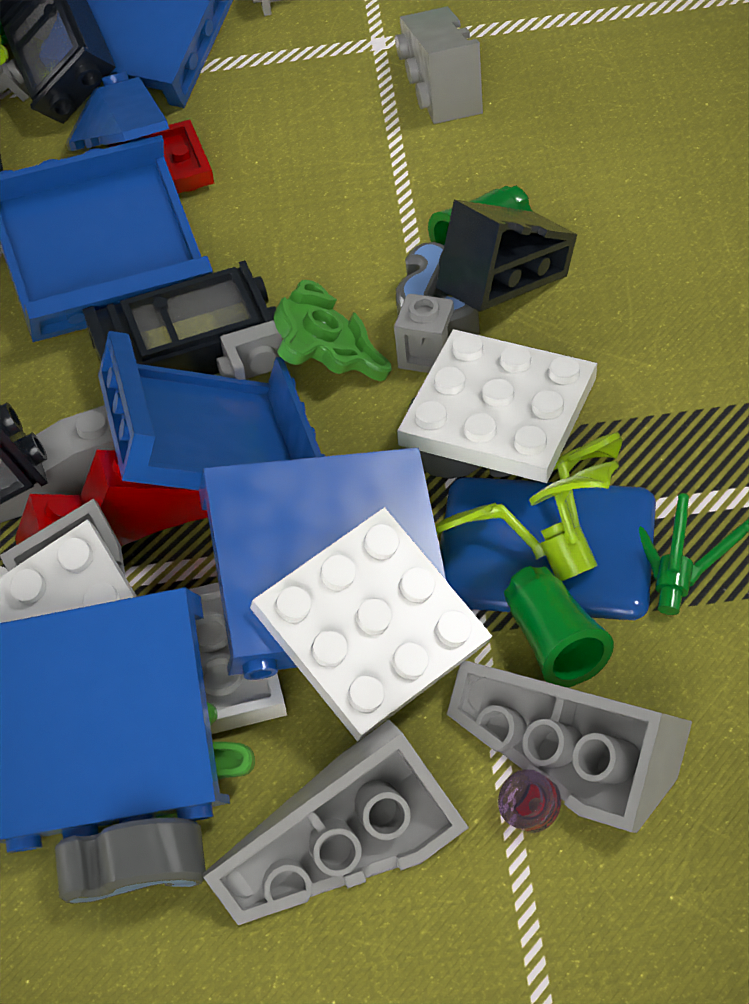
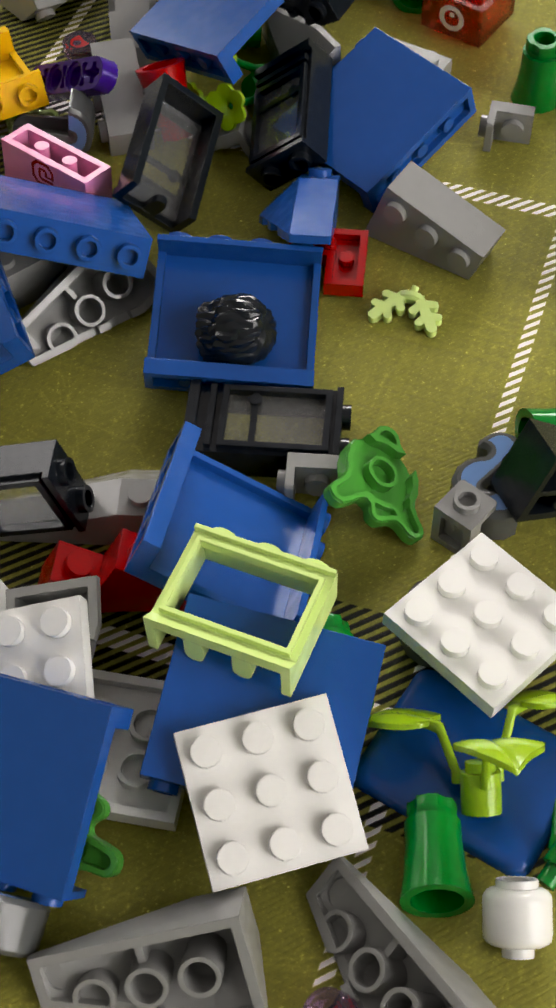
camera: 20 degrees right, 5 degrees up
(106, 244) = (235, 330): none -> black hair
(253, 89) = (433, 223): none -> light grey wedge
(255, 416) = (245, 650): none -> yellowish green window
(278, 171) = (391, 301): none -> yellowish green animal
(659, 639) = (517, 916): none -> white head

